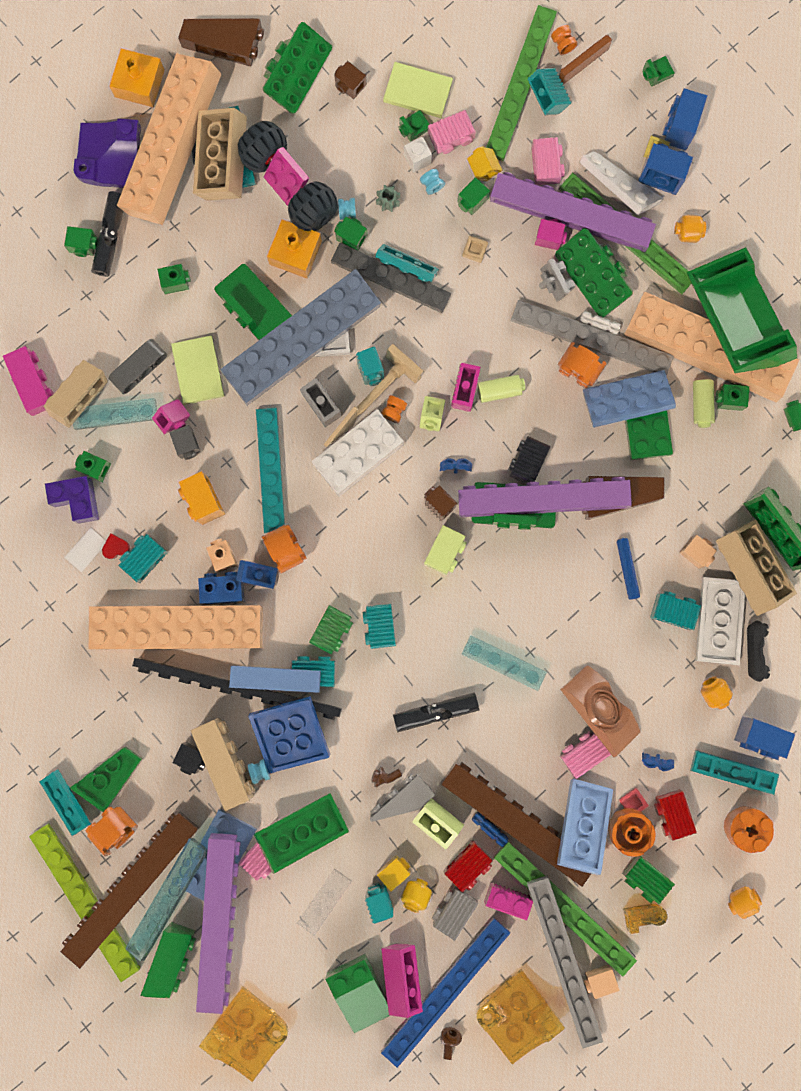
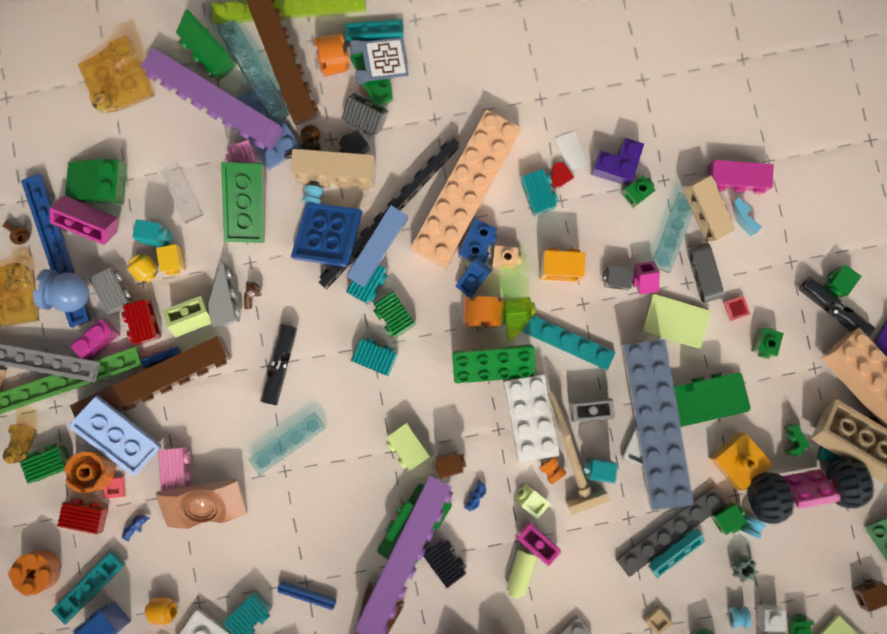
camera: 125 degrees right, 0 degrees up
(70, 354) = (745, 221): none -> medium azure slope
(91, 777) = (381, 58): none -> flag
(154, 764) = (364, 114): none -> dark grey brick
(156, 322) = (736, 308): none -> tile
(201, 808) = (310, 132): none -> reddish brown plate
(212, 799) = (311, 144): none -> dark brown bar
(246, 210) = (796, 437): none -> green bracket
(271, 513) = (517, 315): none -> clear neon green slope
(326, 512) = (493, 364): none -> green bracket
(480, 954) = (63, 291): none -> medium blue tile

